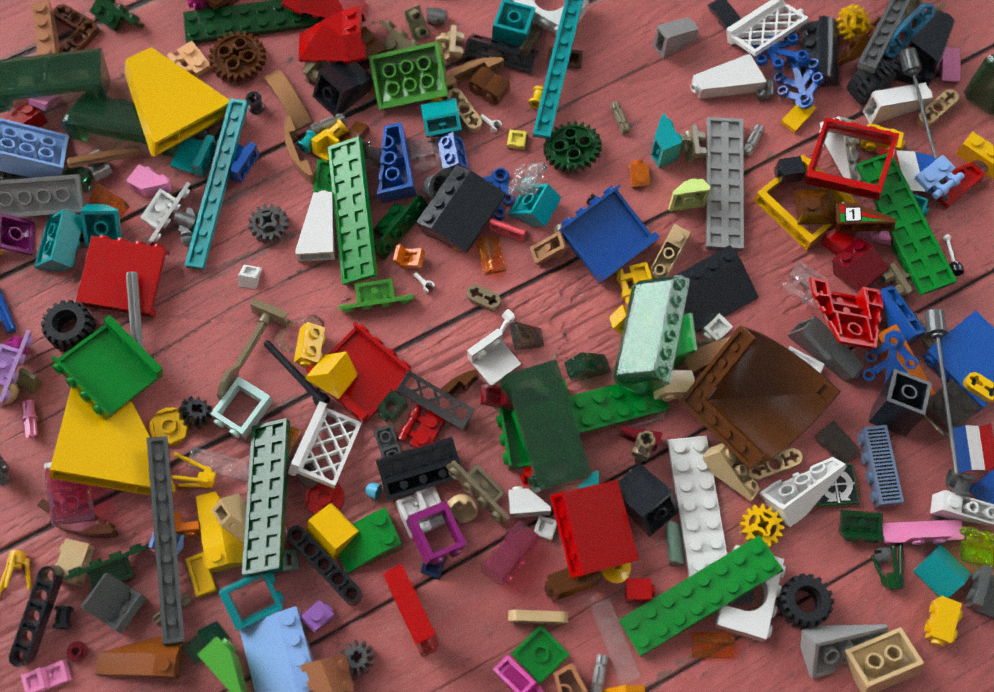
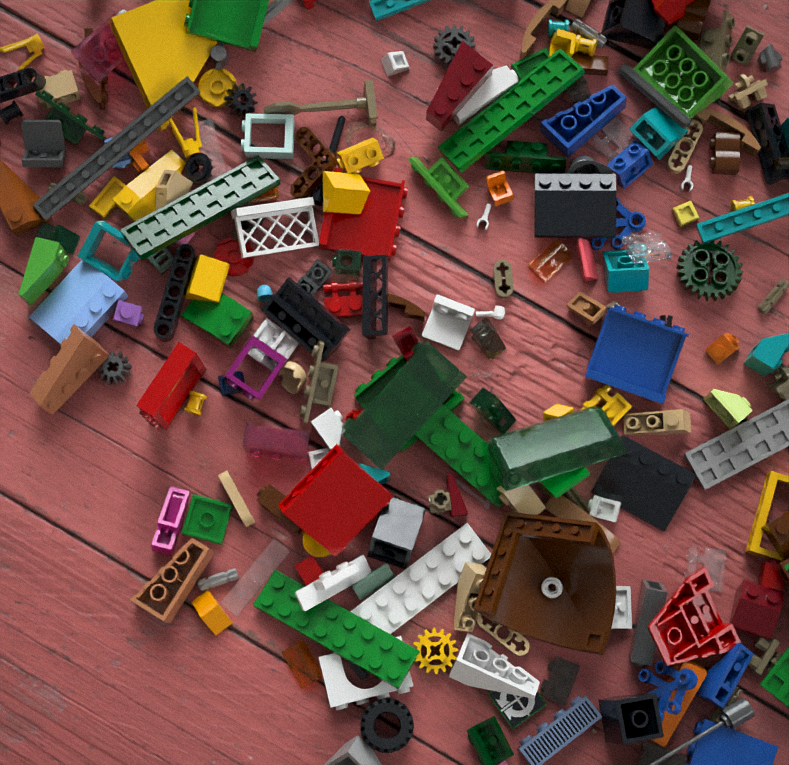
camera: 60 degrees right, 10 degrees up
(144, 407) = (219, 56): none -> flat silver piece
(224, 487) = (192, 168): none -> black gear
(294, 382) = (318, 164): none -> reddish brown beam
(304, 230) = (462, 80): none -> dark red wedge
(412, 104) = (655, 96): none -> dark grey axle
(433, 604) = (195, 403): none -> yellow bush
(660, 575) = (333, 582): none -> white bracket
(764, 400) = (552, 593): none -> white plate

